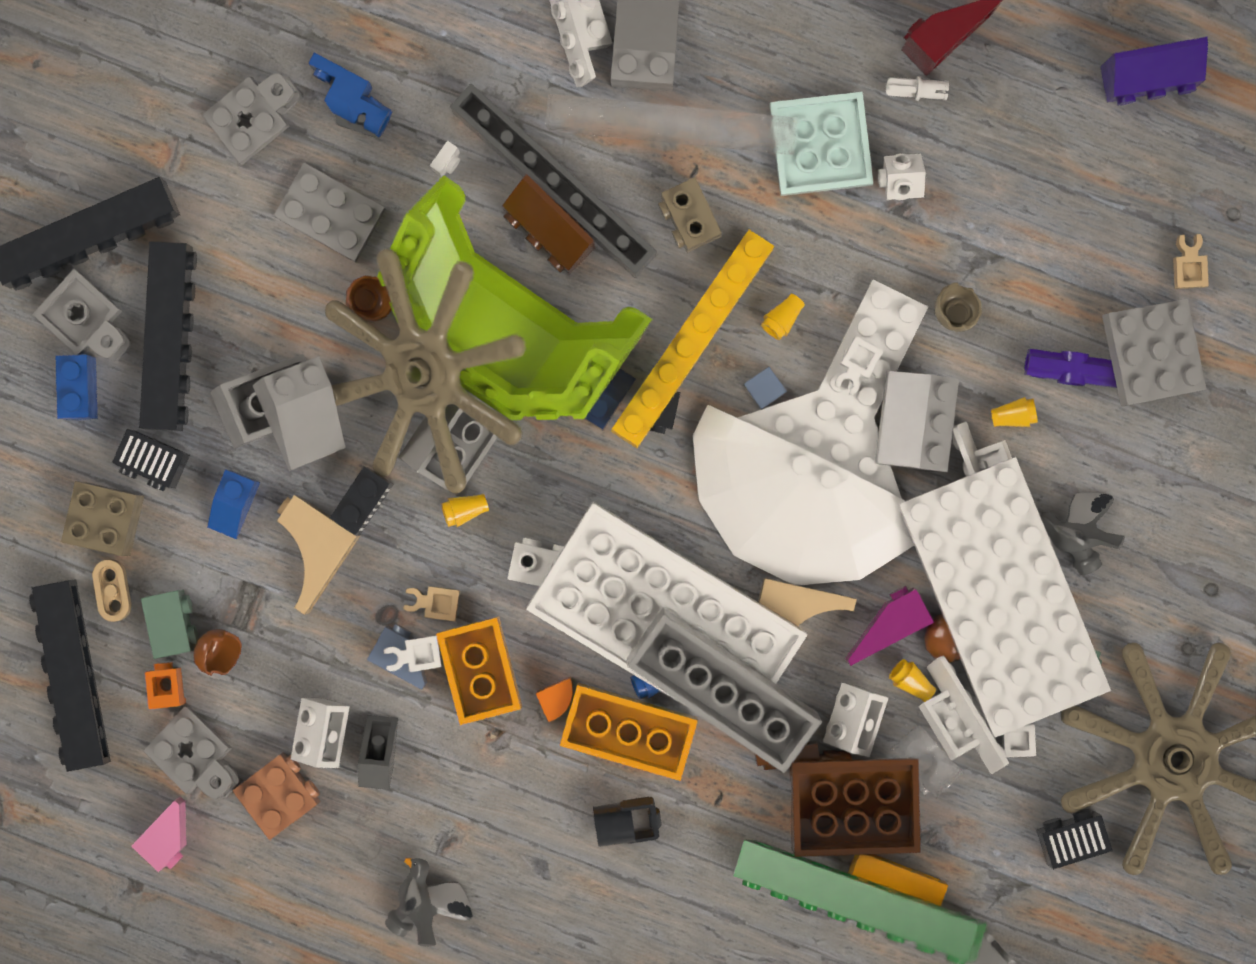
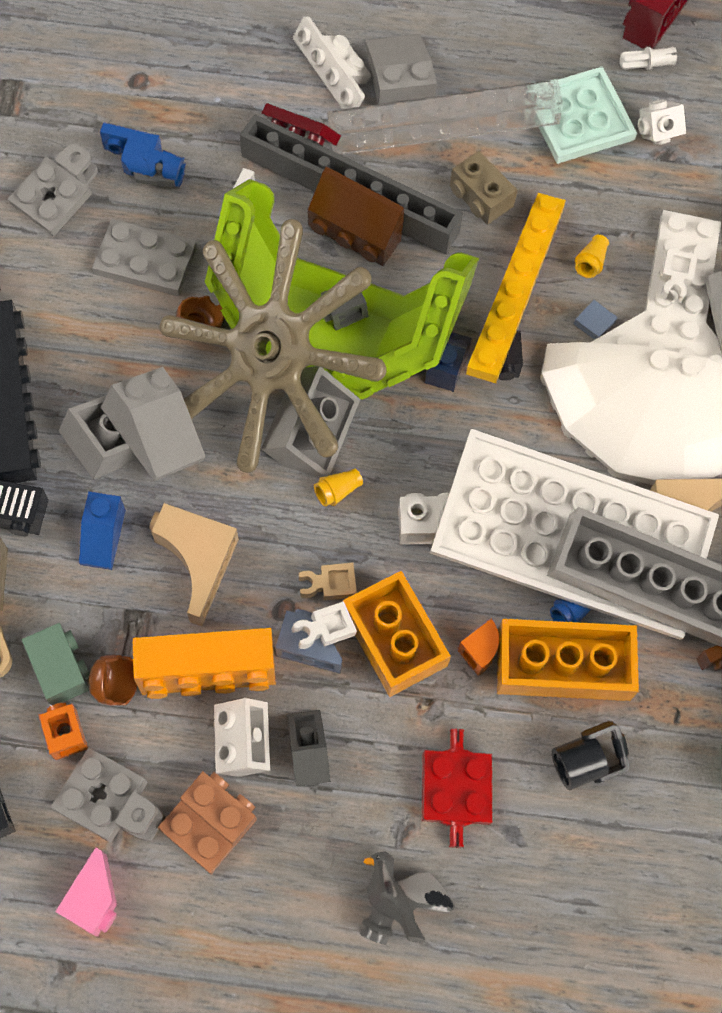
camera: 15 degrees left, 20 degrees down
(300, 658) = (204, 662): none -> light orange brick
(361, 501) = (234, 495): black brick -> none
(501, 817) = (456, 787): none -> red plate
(517, 103) = (301, 125): none -> dark red plate
(517, 324) = (348, 313): none -> dark grey bracket

